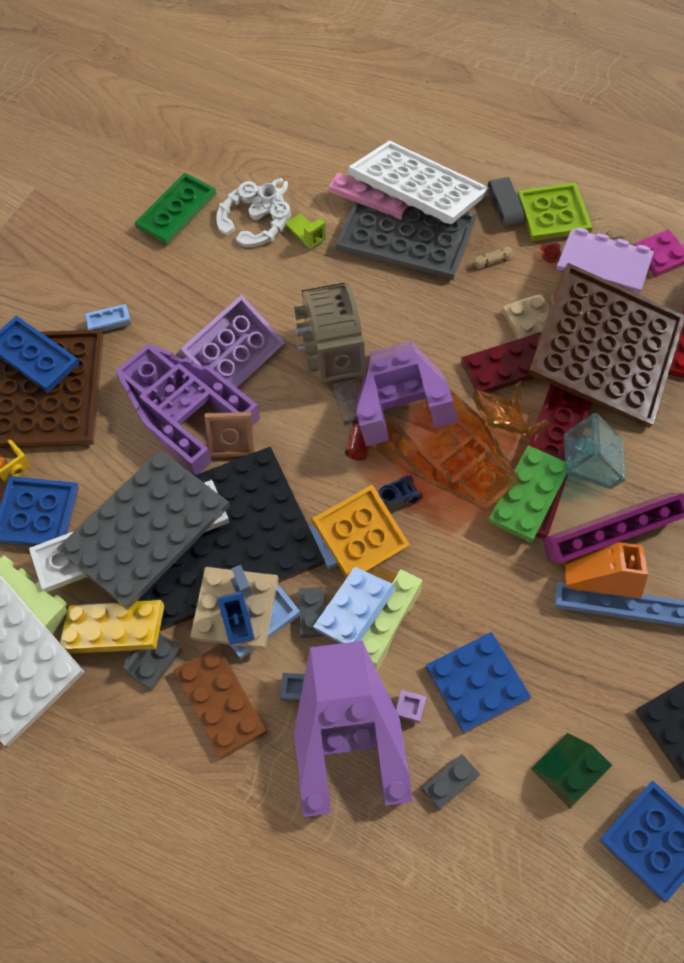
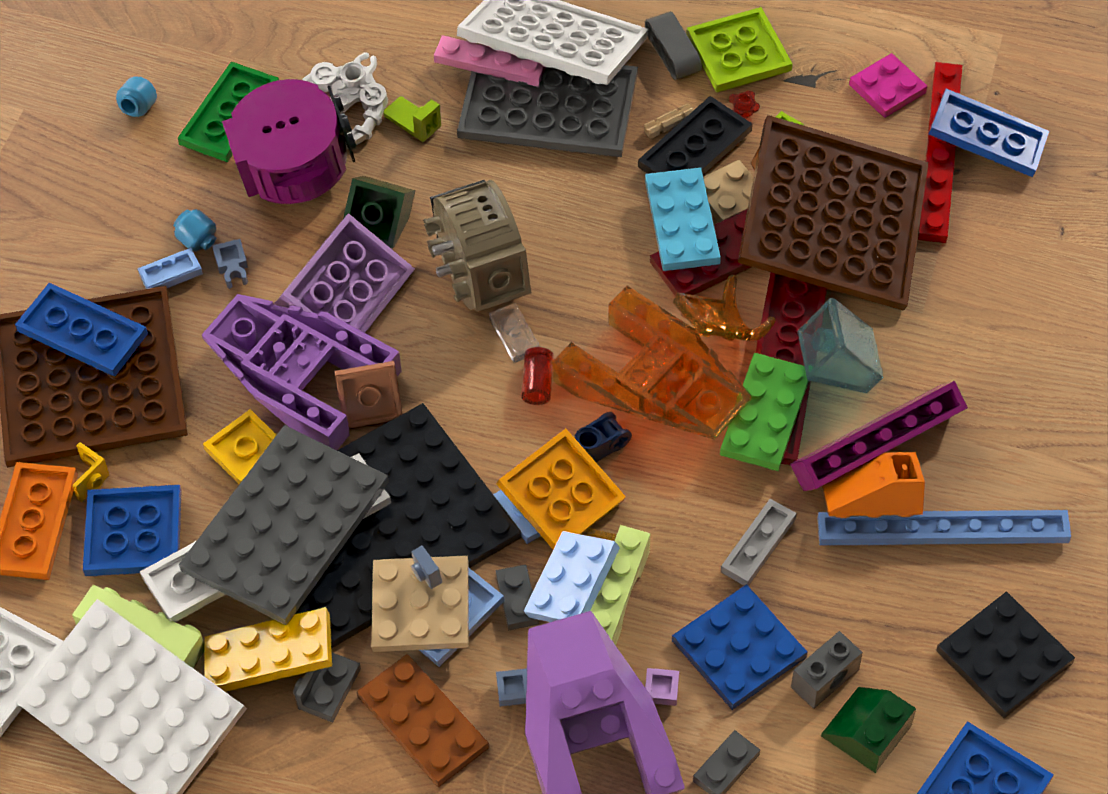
camera: 10 degrees left, 5 degrees down
(112, 189) = (136, 96): none -> dark azure head
(128, 457) = (240, 444): none -> yellow plate
(132, 291) = (195, 230): none -> dark azure head
(153, 317) = (231, 261): none -> sand blue plate
(209, 234) = (289, 141): none -> magenta piece
(236, 618) = (428, 610): blue slope -> none
(268, 293) = (380, 207): none -> dark green slope
(398, 378) = (576, 291): medium lavender wedge -> none
(490, 333) = (682, 219): none -> medium azure plate
(506, 598) = (758, 542): none -> light grey plate
(509, 278) = (697, 140): none -> black plate
(544, 715) = (826, 669): none -> dark grey brick
(607, 258) = (817, 102): lavender slope -> none

